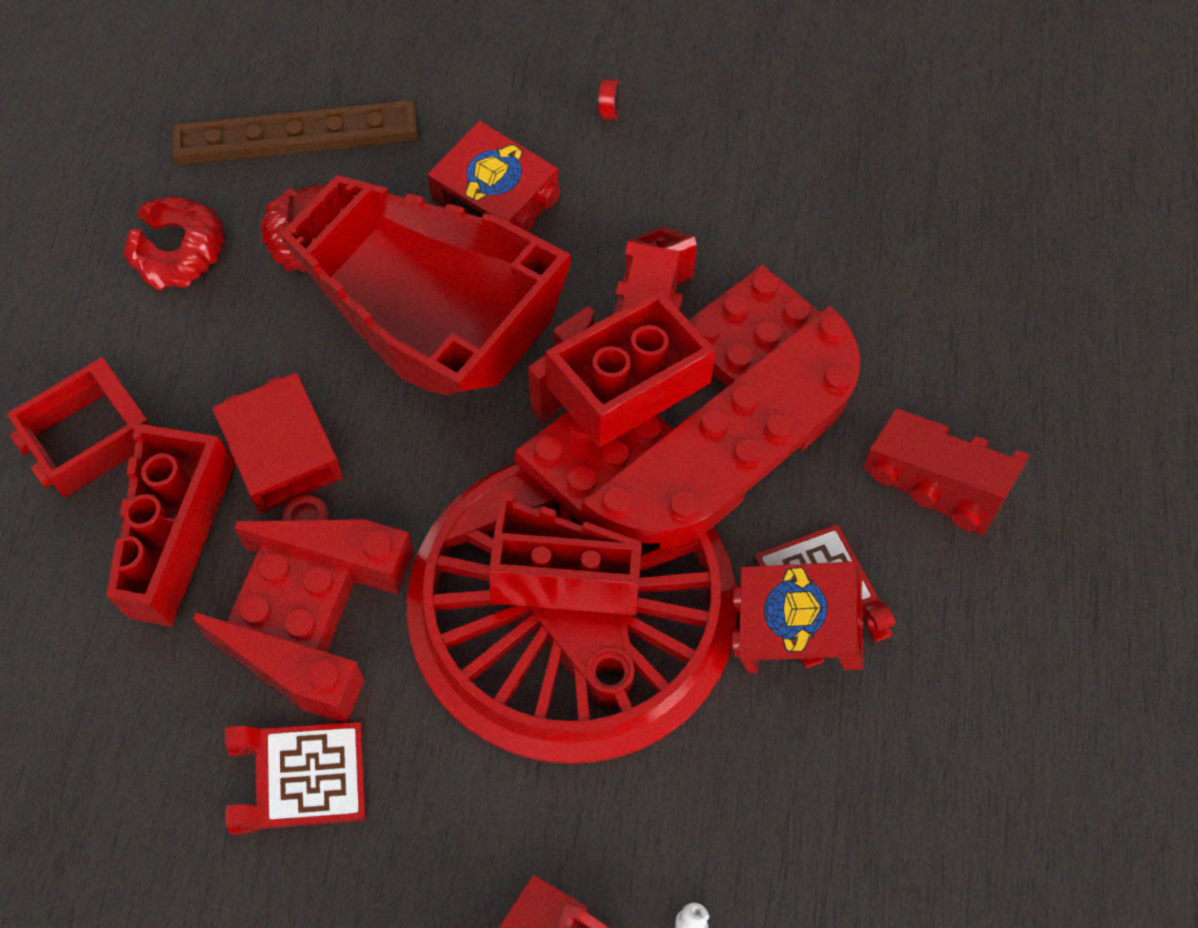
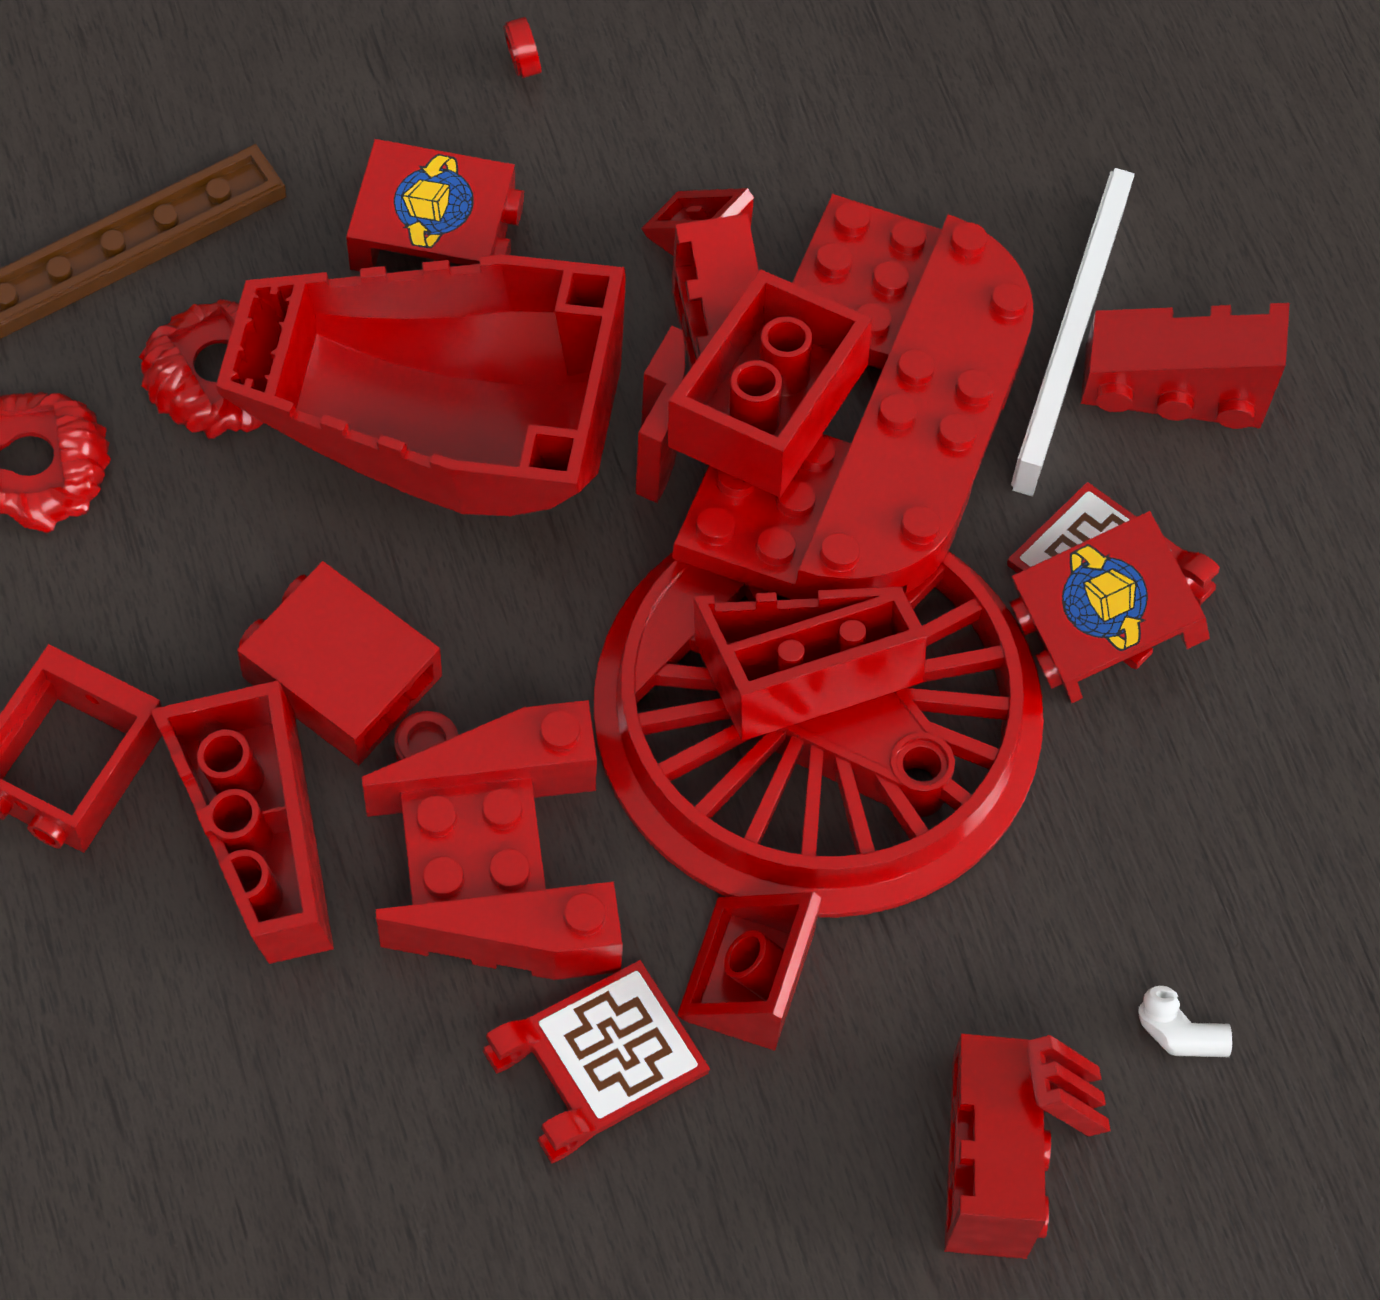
camera: 30 degrees left, 0 degrees up
(428, 761) = (751, 965): none -> red slope
(873, 420) = (1071, 332): none -> white tile

